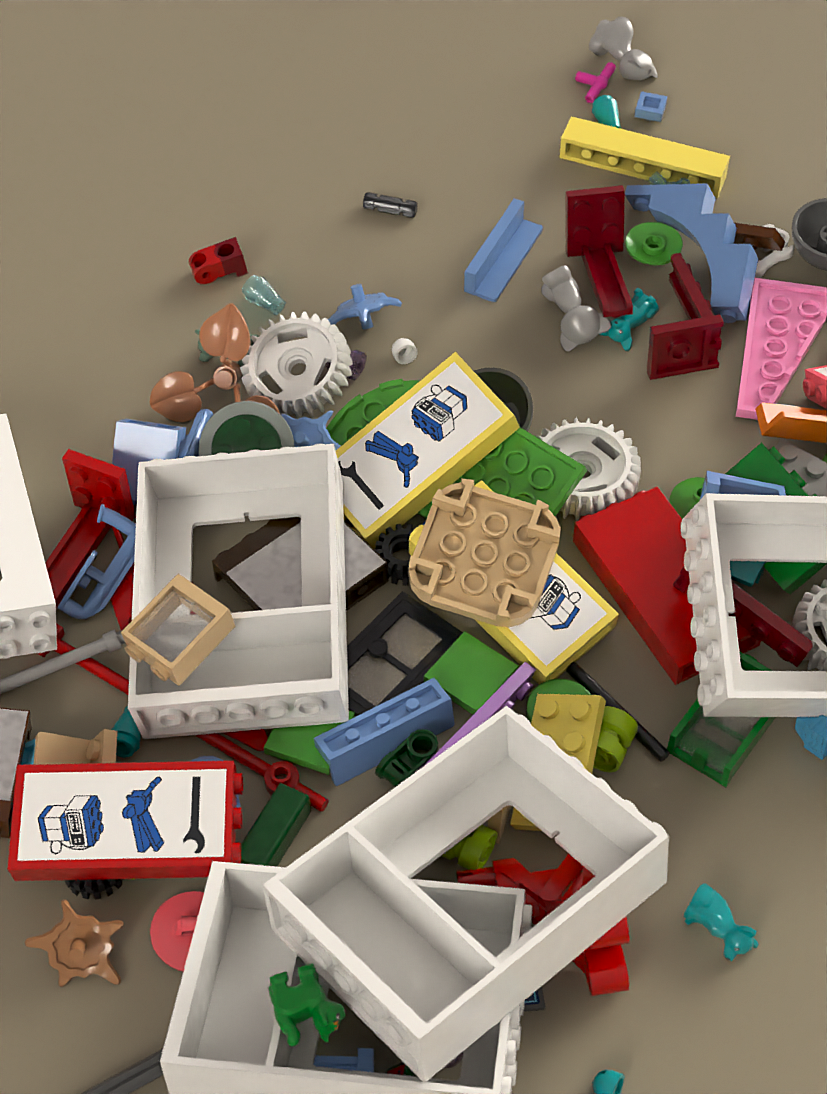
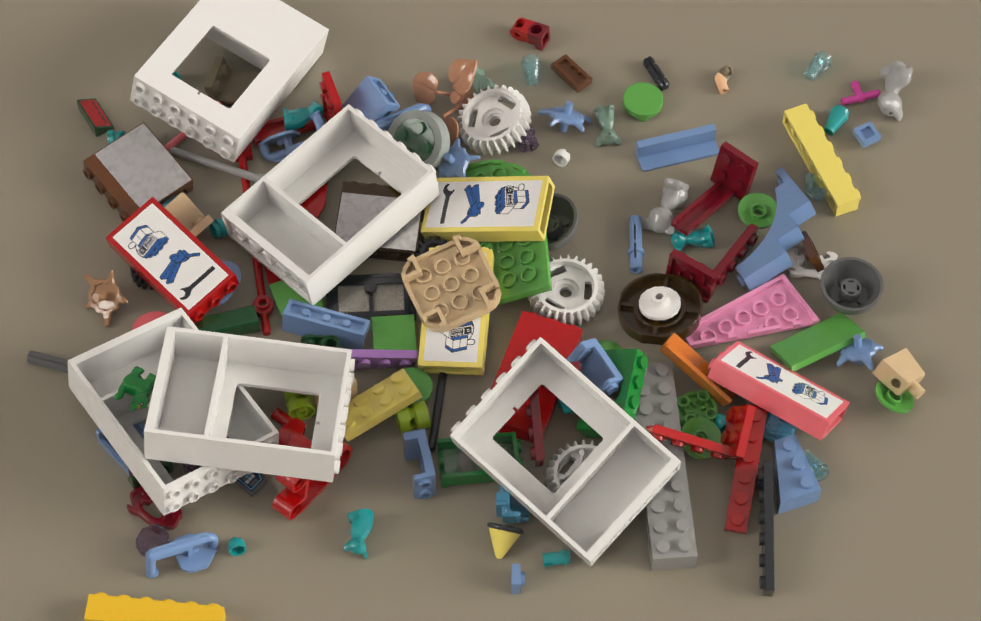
camera: 45 degrees right, 5 degrees up
(77, 536) = (299, 117): none -> teal animal
(177, 630) = (271, 196): window -> none
(308, 267) = (571, 73): none -> reddish brown plate
(404, 282) = (606, 119): none -> sand green animal
(412, 237) = (642, 101): none -> bright green tile
(457, 162) = (722, 77): none -> arm
(528, 82) = (818, 64): none -> clear light blue cone
(594, 374) = (636, 251): none -> medium blue pin
(691, 772) = (416, 447): none -> medium blue panel
(697, 403) = (658, 307): none -> dark brown piece

